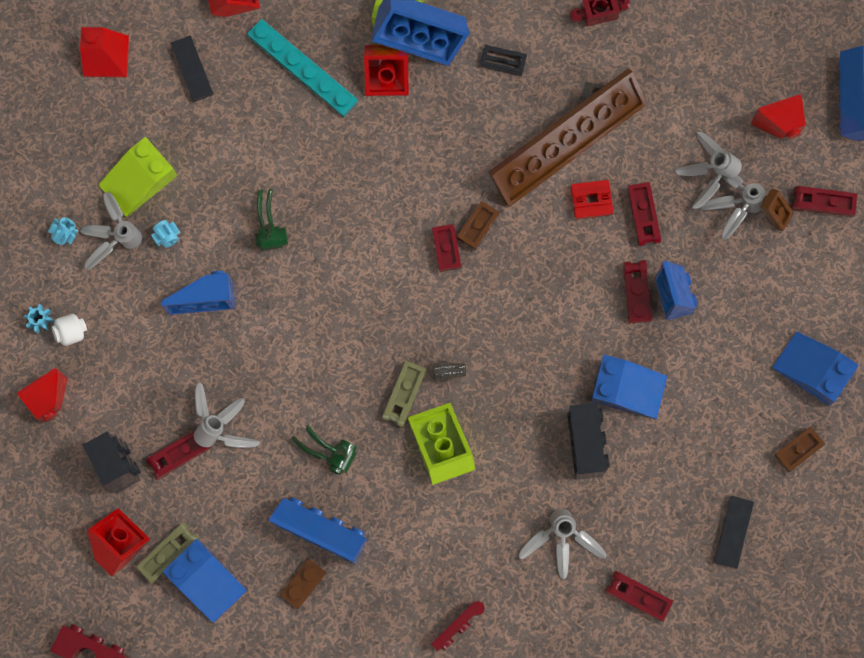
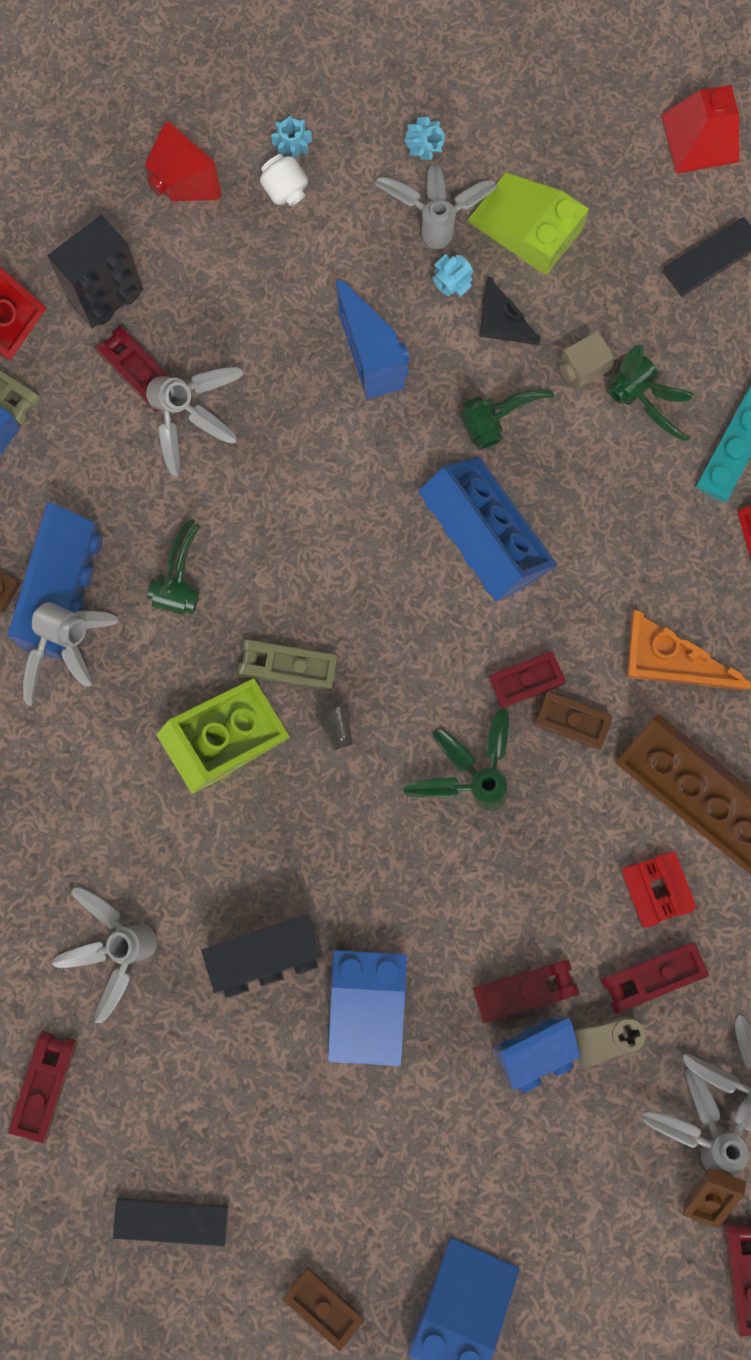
camera: 75 degrees right, 0 degrees up
(201, 209) = (503, 319): none -> black tile
(245, 163) = (586, 360): none -> dark tan brick
(264, 133) = (637, 376): none -> dark green plant
(343, 250) = (486, 527): none -> blue slope
(355, 525) = (68, 630): none -> light grey plant
(449, 162) = (664, 657): none -> orange wing
(490, 296) = (463, 761): none -> dark green plant
(676, 251) = (601, 1043): none -> dark tan piece

